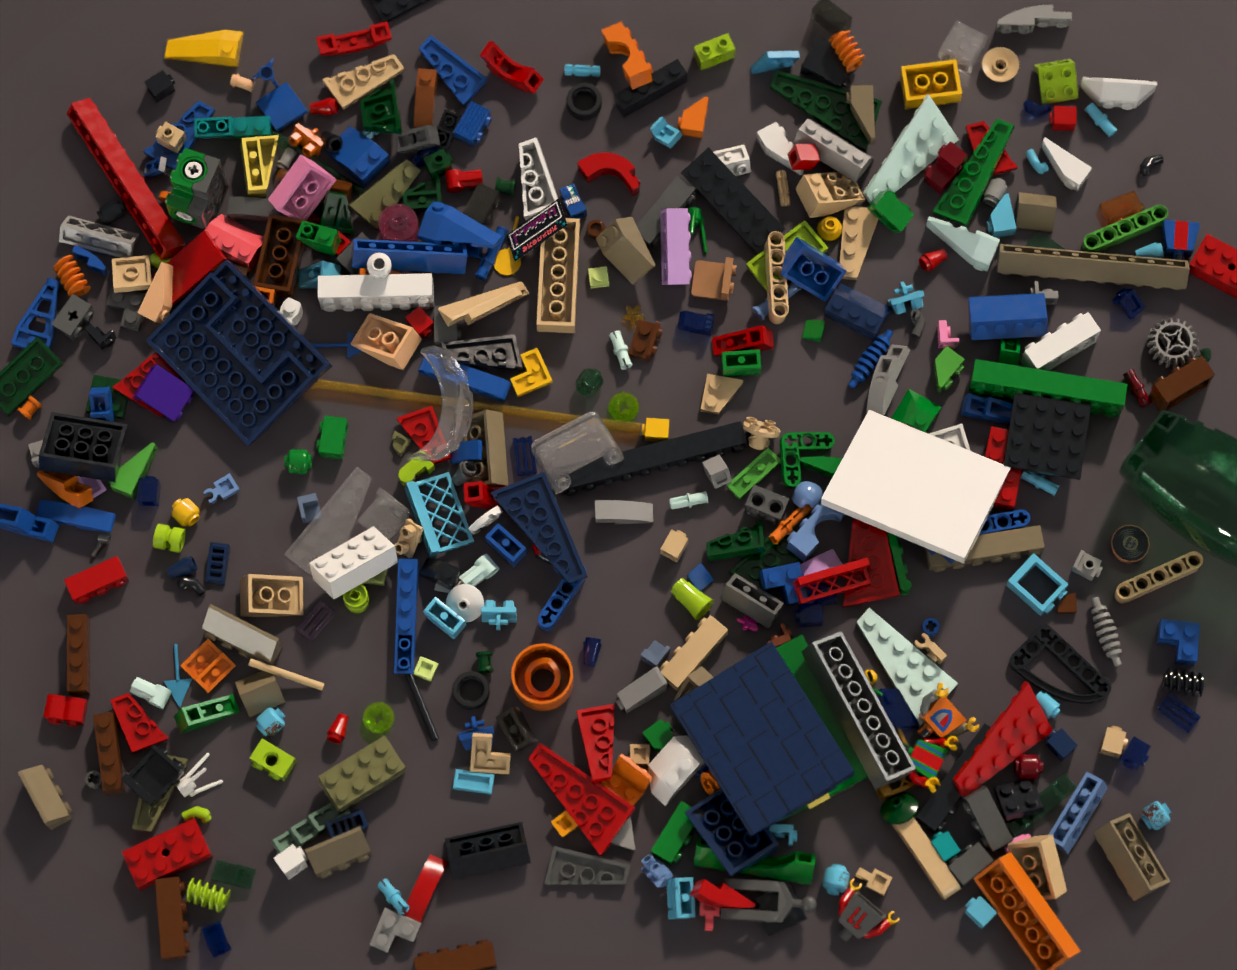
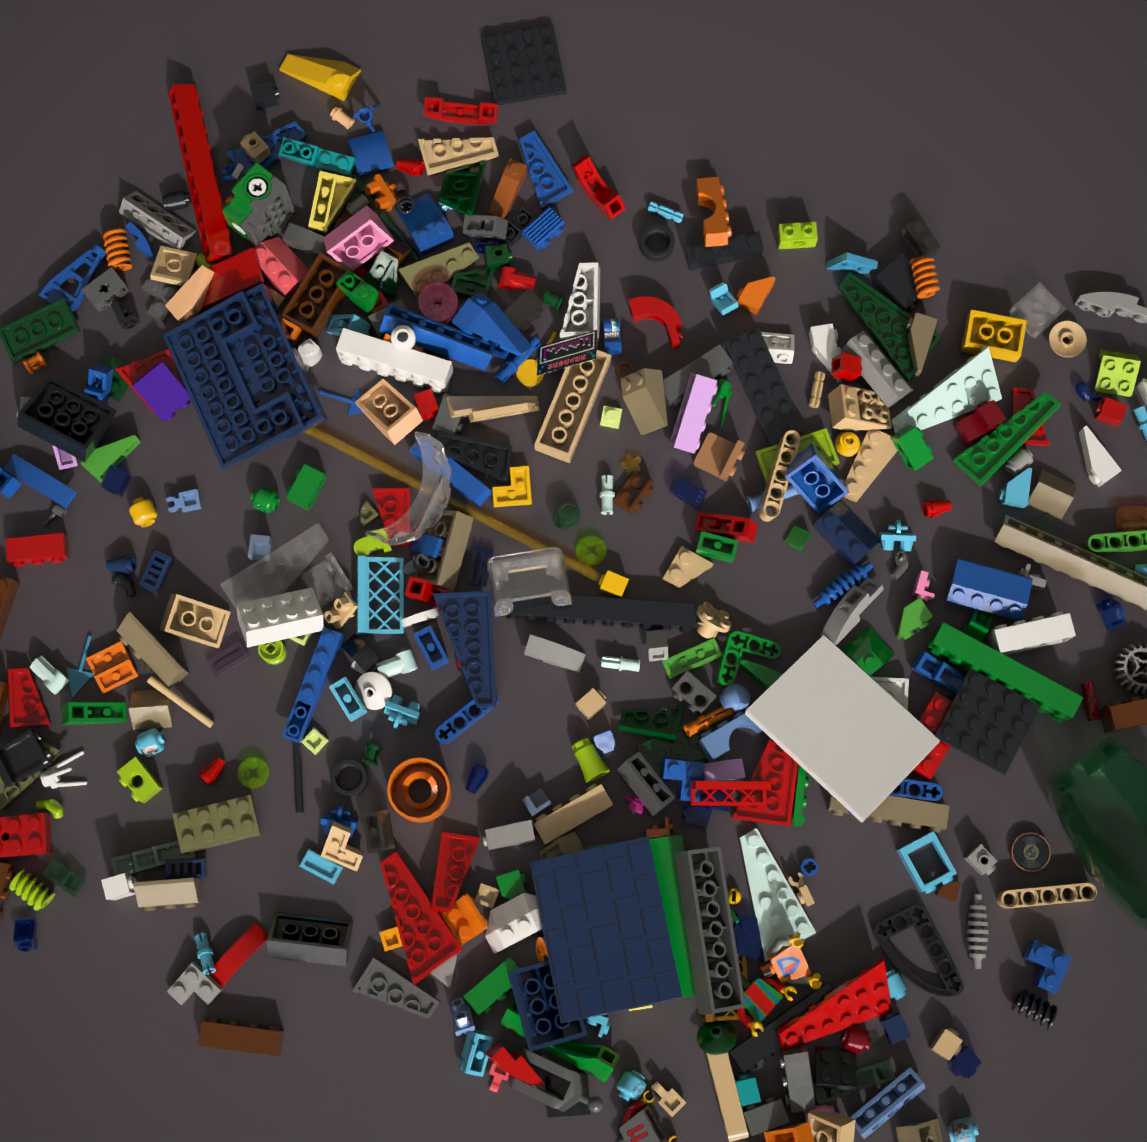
camera: 15 degrees right, 5 degrees up
(67, 488) = (41, 453): orange slope -> none
(169, 538) = (121, 533): lime wheel -> none
(975, 248) = (981, 511): light aqua wedge -> none
(1034, 161) = (1067, 445): medium azure arm -> none
(1040, 482) = (965, 762): medium azure pin -> none
(1181, 705) = (1029, 1050): clear blue tile -> none

